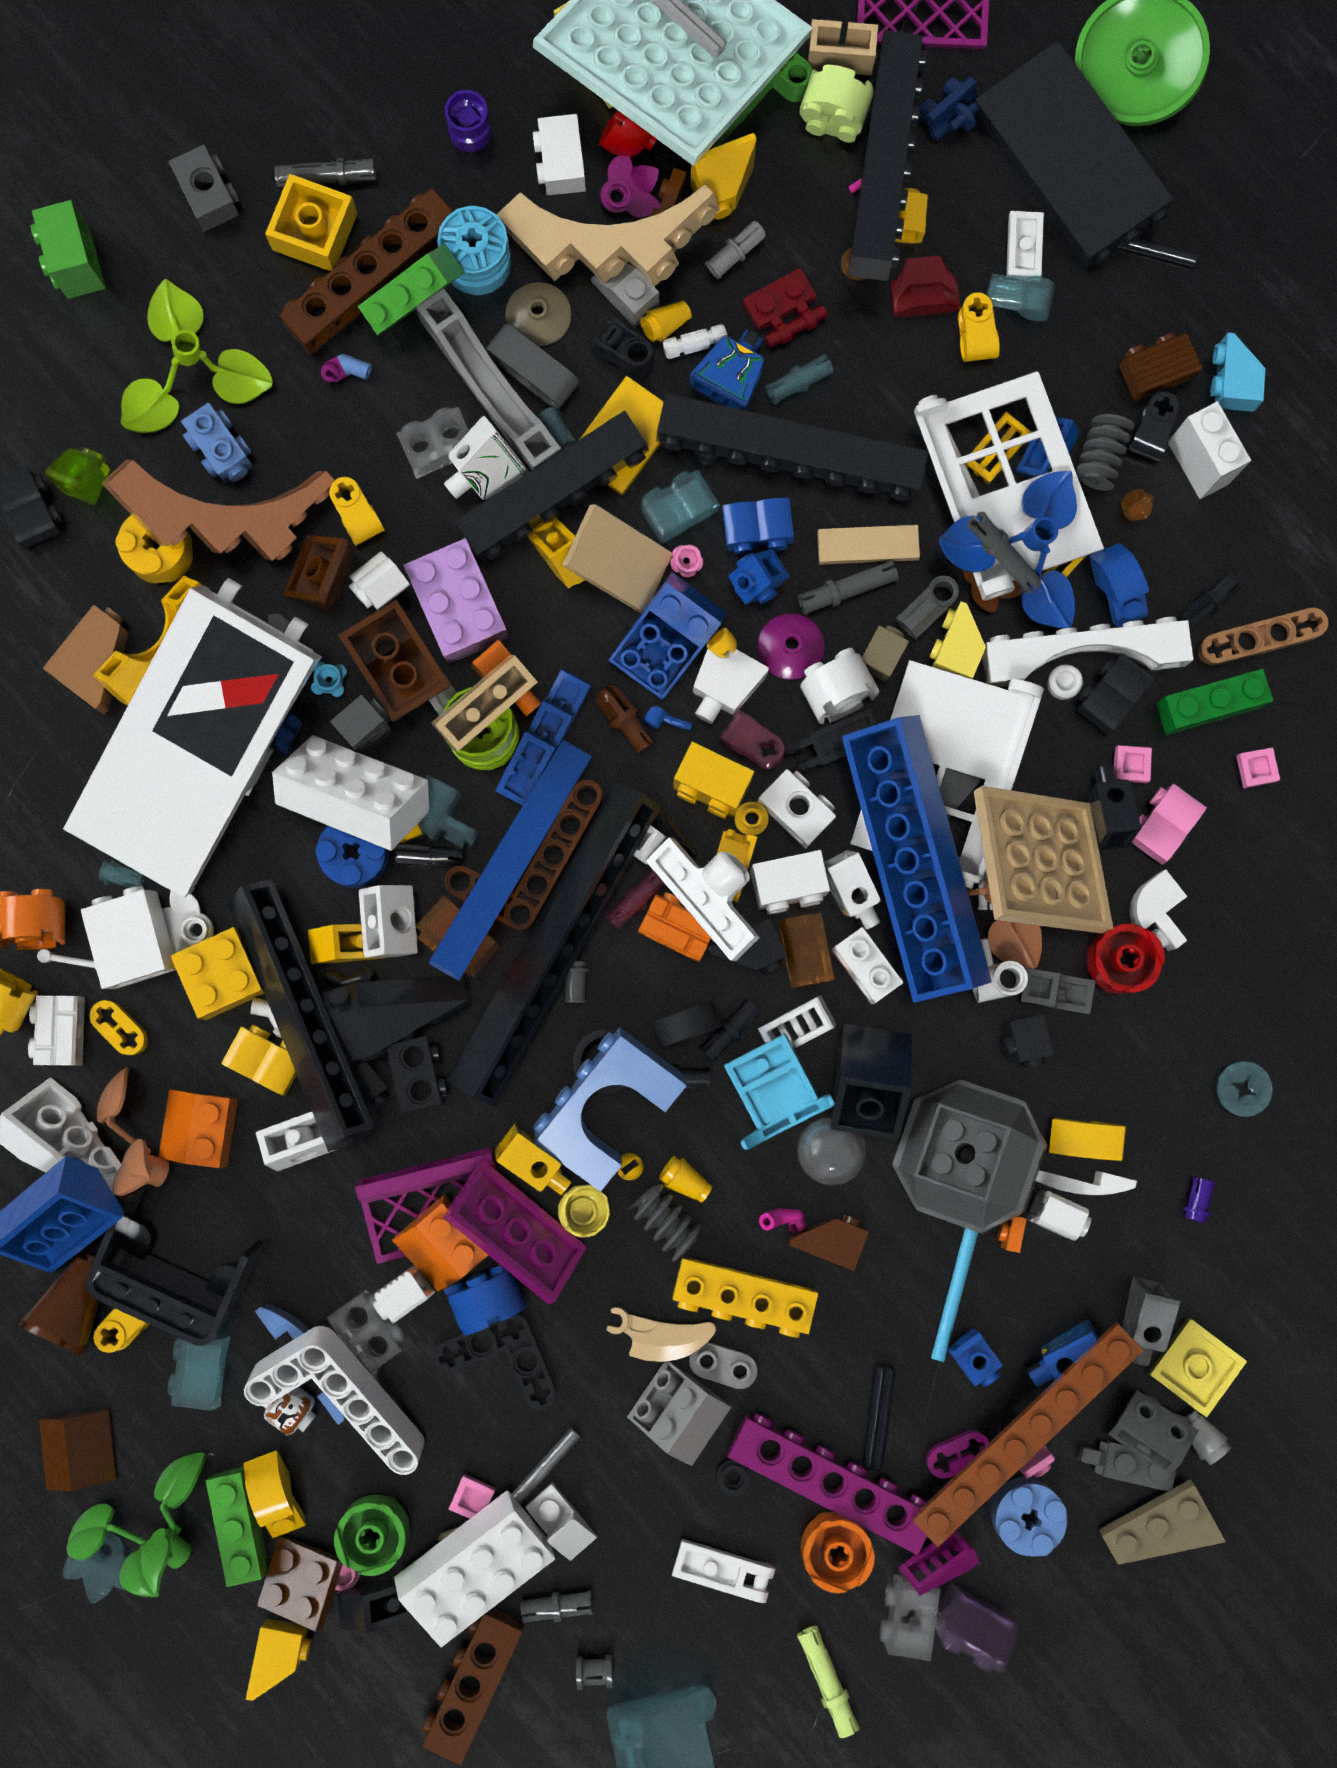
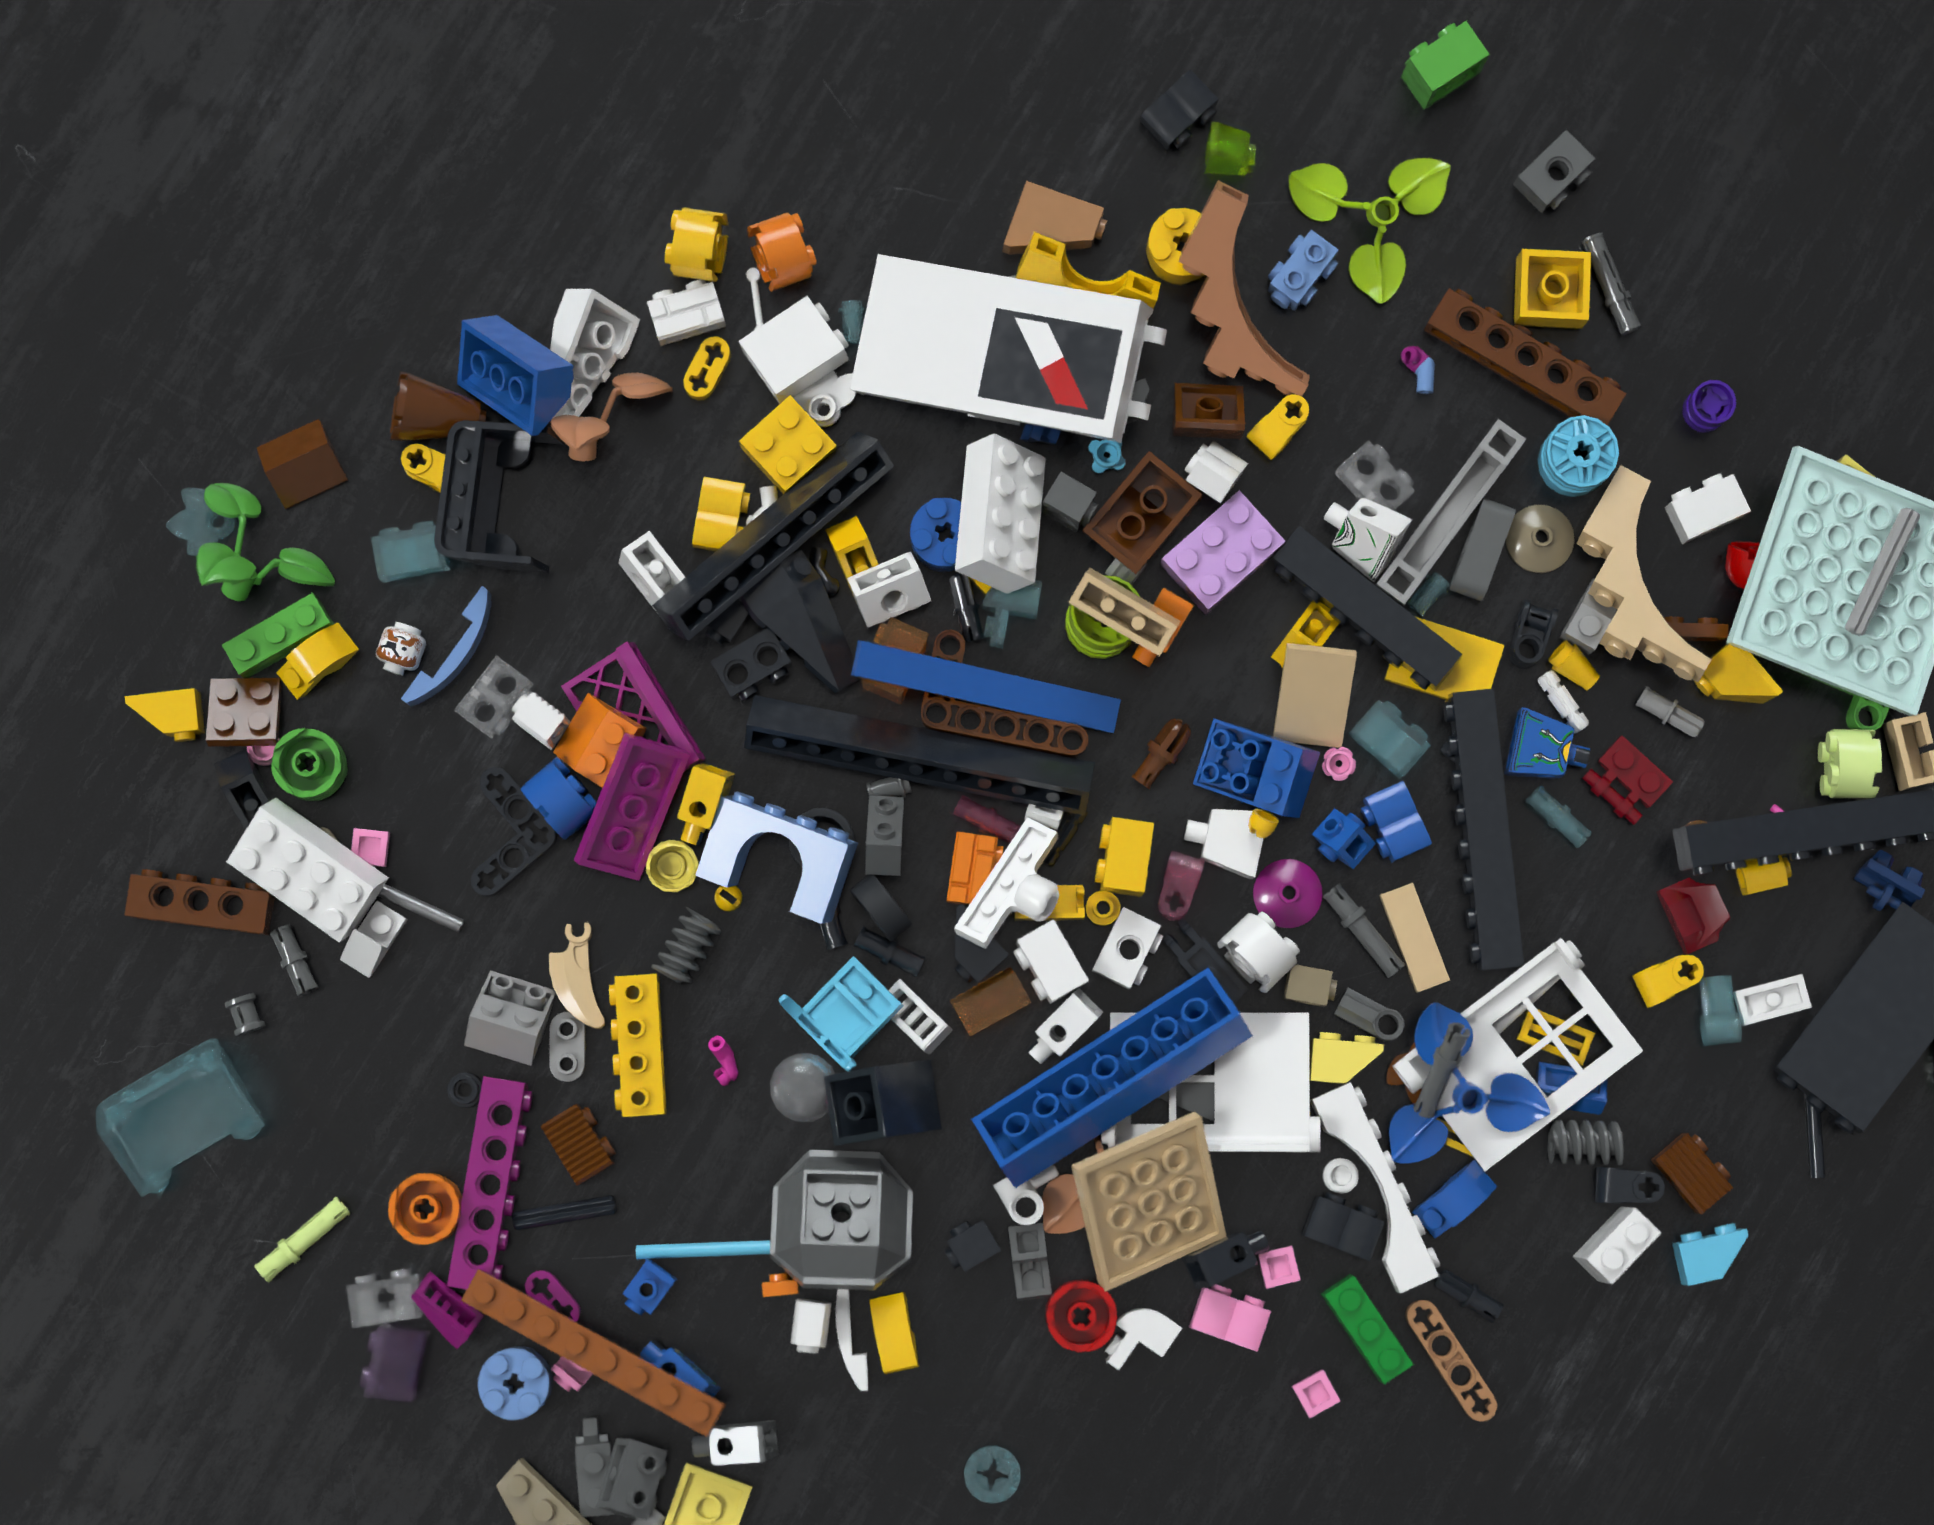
camera: 70 degrees right, 0 degrees up
(198, 1129) = (635, 475): orange slope -> none
(353, 1393) = (433, 693): white beam -> none
(411, 289) = (1513, 409): bright green arch -> none
(543, 736) = (1118, 680): blue slope -> none
(620, 999) = (884, 835): none -> dark grey brick
(633, 184) = (1702, 591): magenta plate -> none
(656, 715) = (1174, 783): blue hand -> none
(684, 1179) = (732, 953): yellow cone -> none
(722, 1570) = (374, 1106): white plate -> none
(819, 1383) = (579, 1144): none -> reddish brown brick
(833, 1240) = (718, 1114): reddish brown slope -> none
(867, 966) = (994, 1064): white brick -> none
(1137, 505) = (1542, 1193): clear orange plate -> none
(1199, 1200) = (869, 1461): dark purple pin -> none

